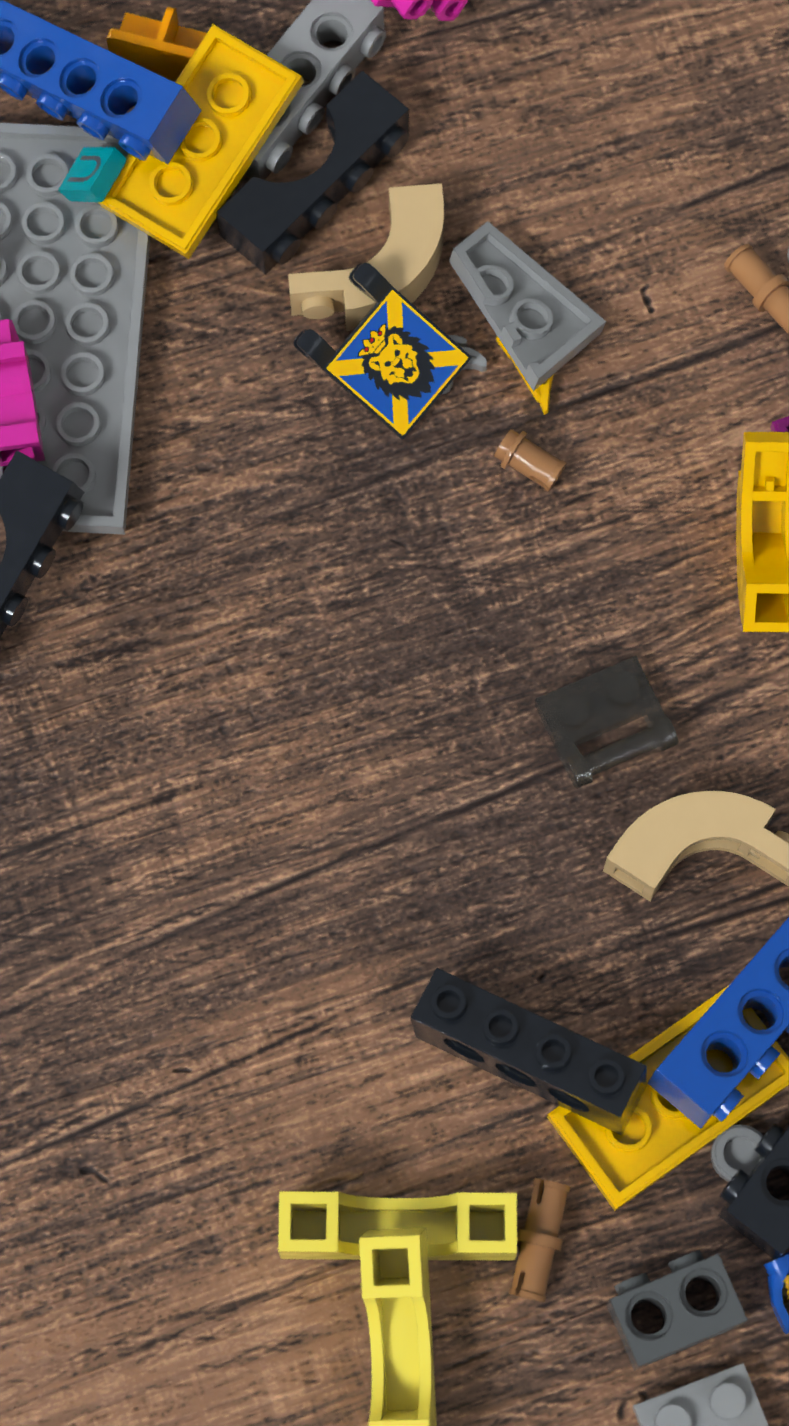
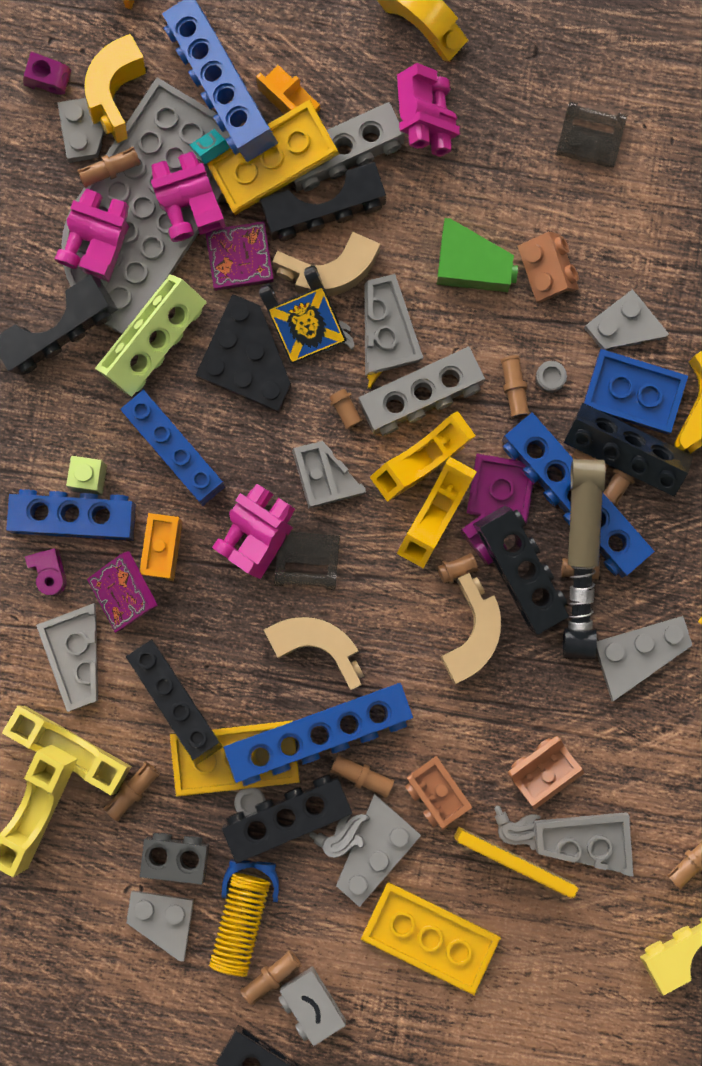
camera: 30 degrees right, 10 degrees up
(100, 249) = (183, 189): none -> dark pink hips
(161, 426) = (135, 339): none -> yellowish green brick
(173, 880) = (23, 506): none -> blue brick
(178, 774) = (86, 475): none -> yellowish green brick
(203, 957) = (51, 574): none -> magenta leg
(227, 320) = (239, 256): none -> magenta tile
(293, 658) = (173, 447): none -> blue brick
(314, 1072) = (72, 654): none -> light grey wing
(326, 466) = (245, 357): none -> black plate
(342, 923) = (122, 591): none -> magenta tile
(363, 817) = (161, 546): none -> light orange panel
(511, 702) = (263, 529): none -> dark pink hips
(556, 577) = (324, 476): none -> light grey wing
(595, 141) = (473, 261): none -> bright green slope
(670, 302) = (459, 364): none -> light grey brick
(699, 460) = (423, 458): none -> yellow arch
(713, 94) = (548, 266): none -> nougat bracket

